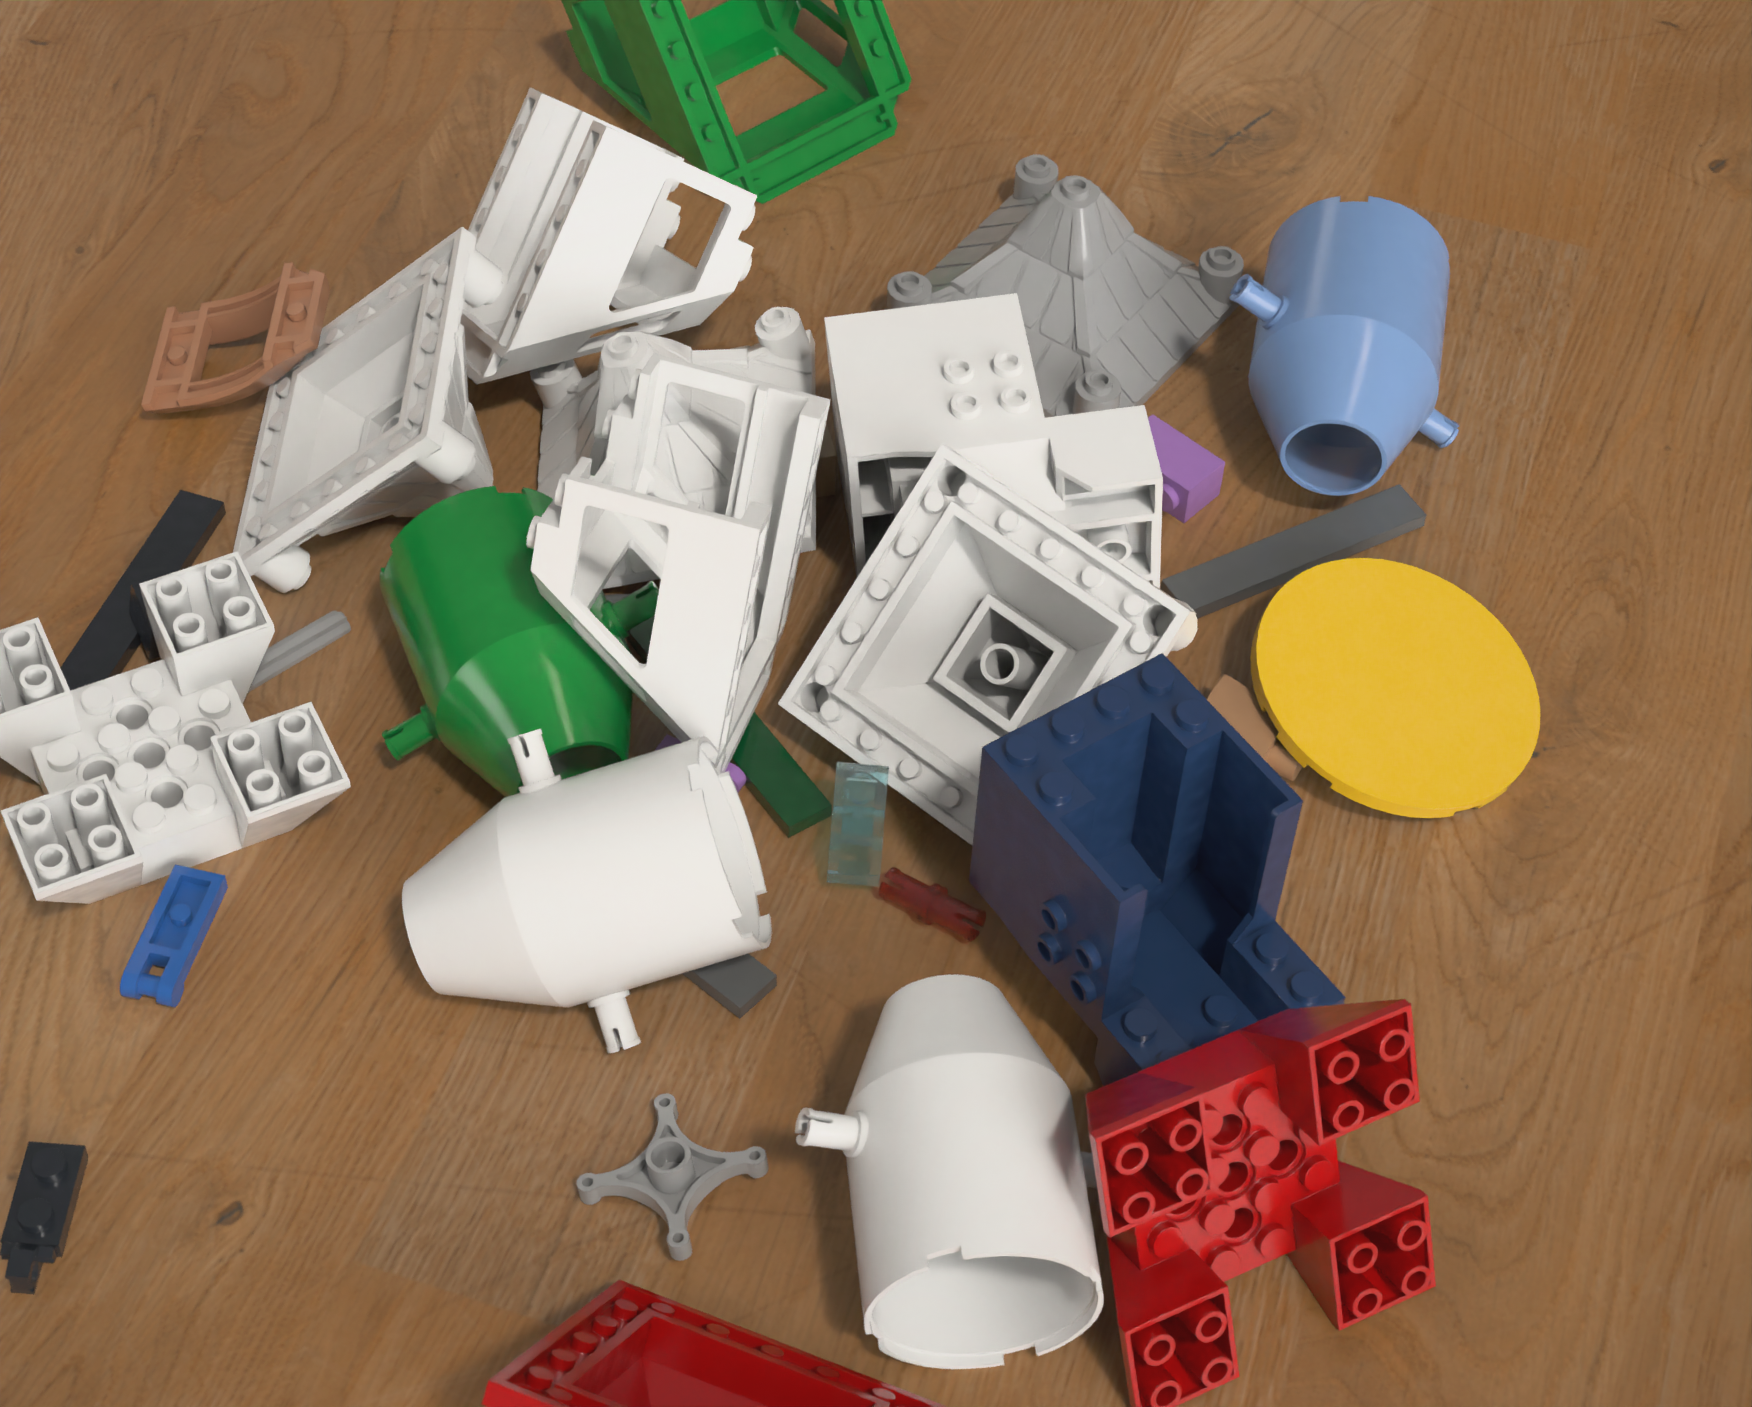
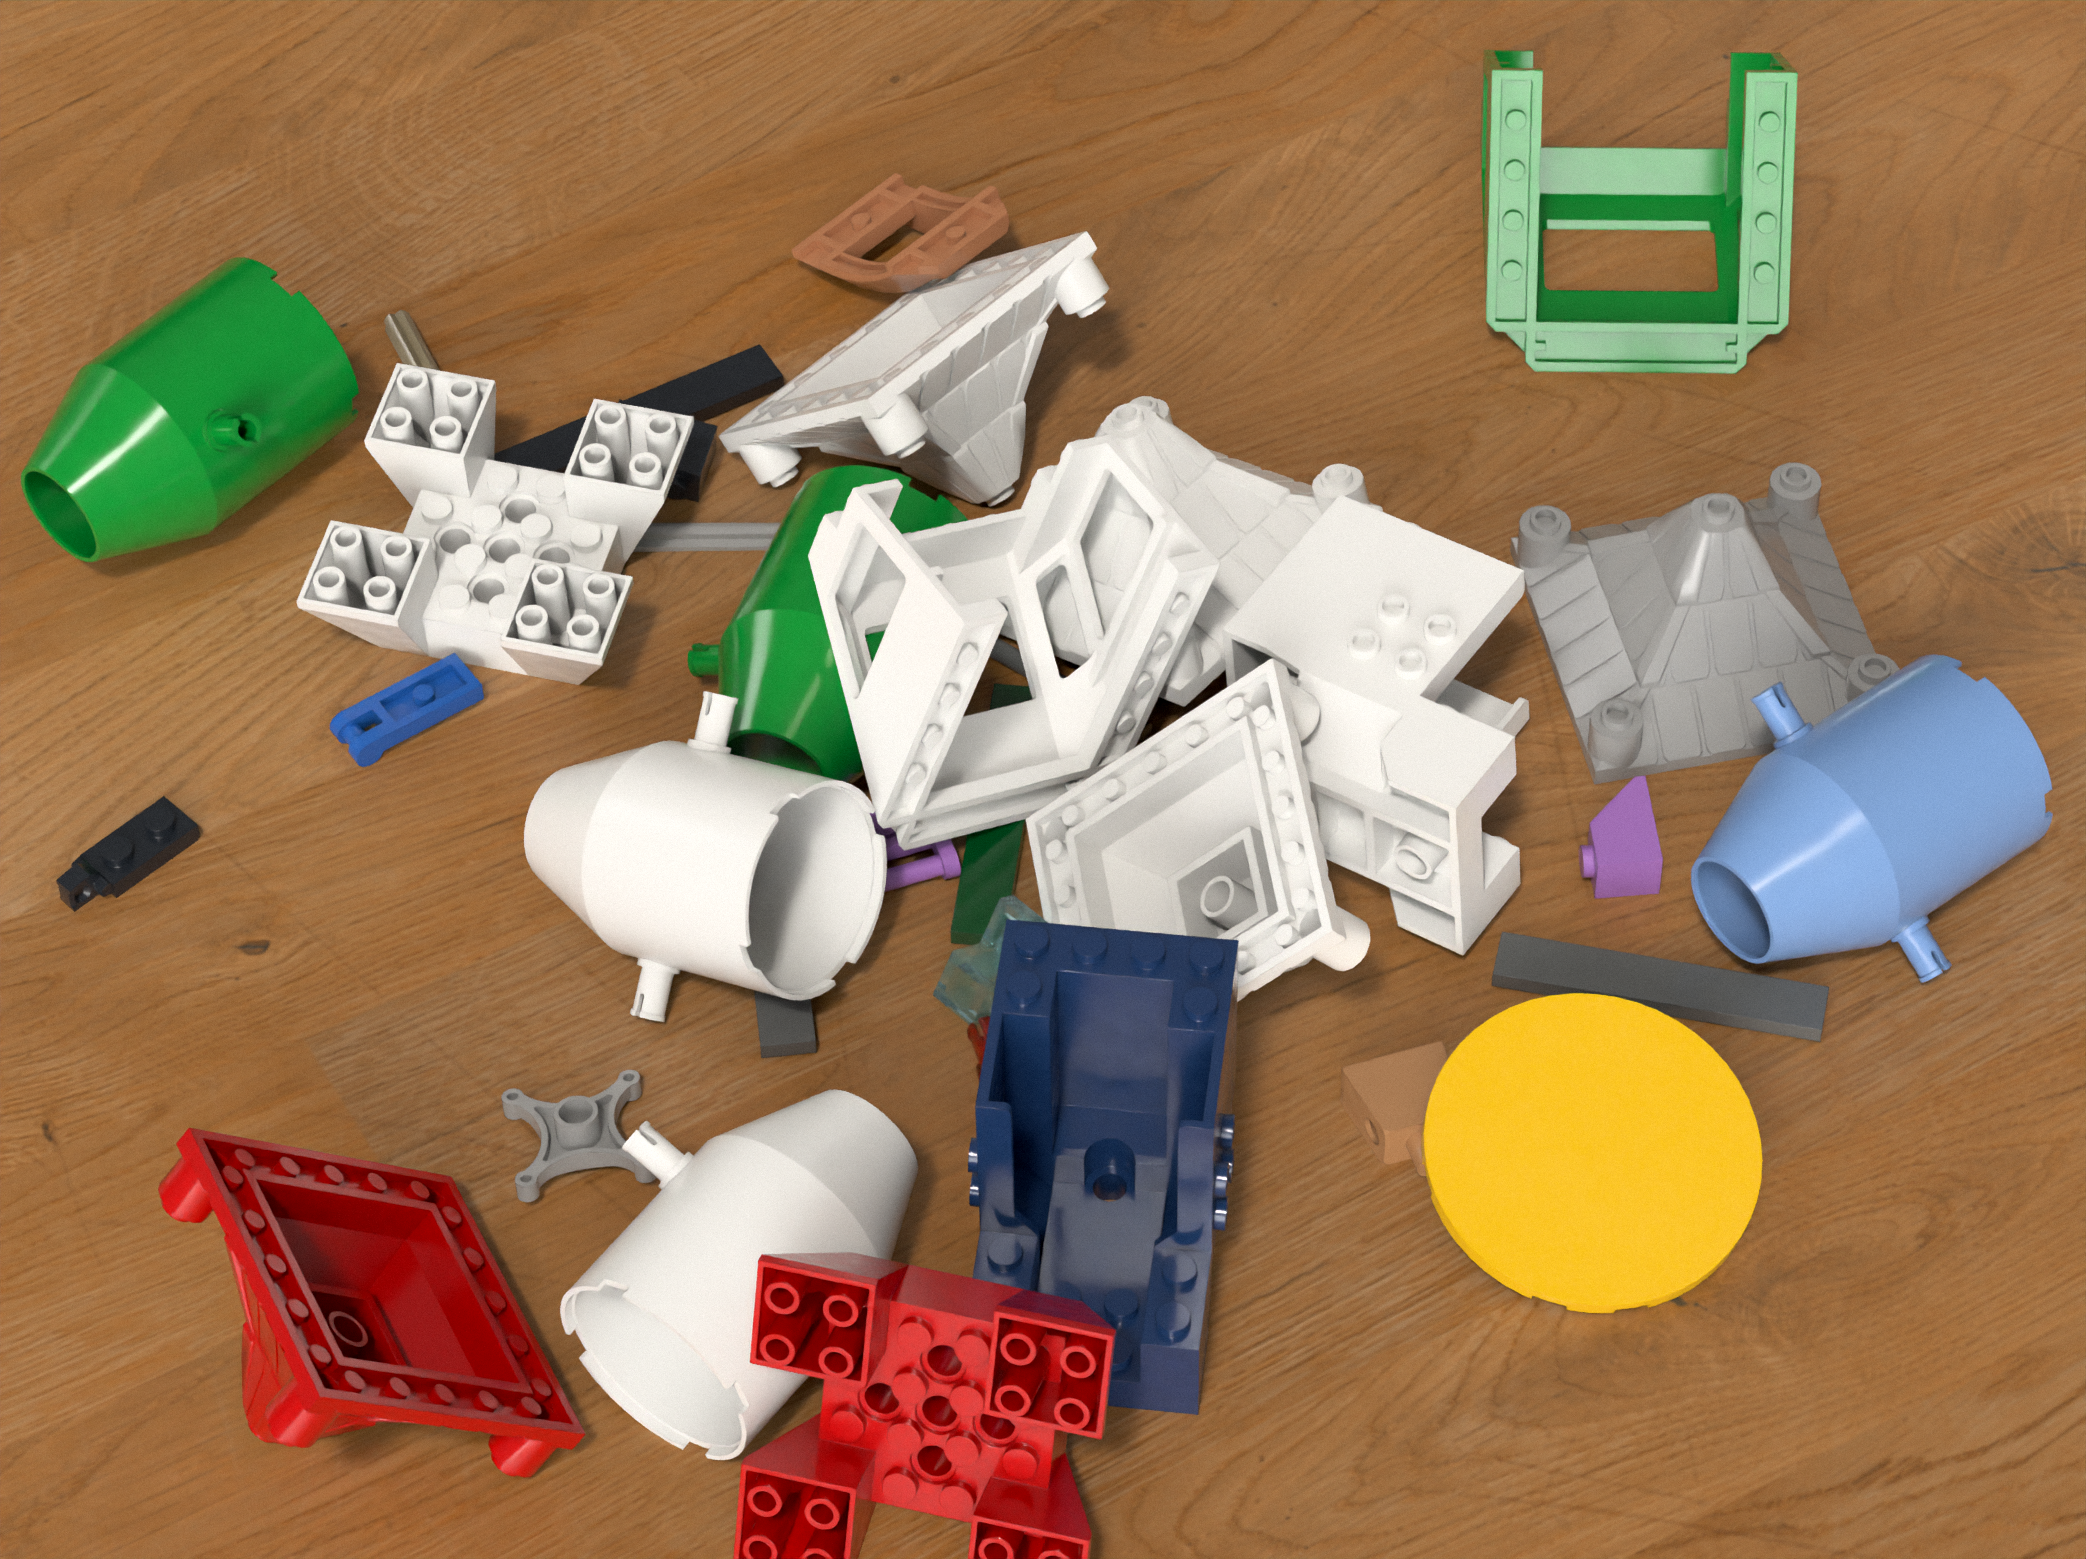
camera: 45 degrees right, 0 degrees up
(583, 226) = (1227, 287): white piece -> none

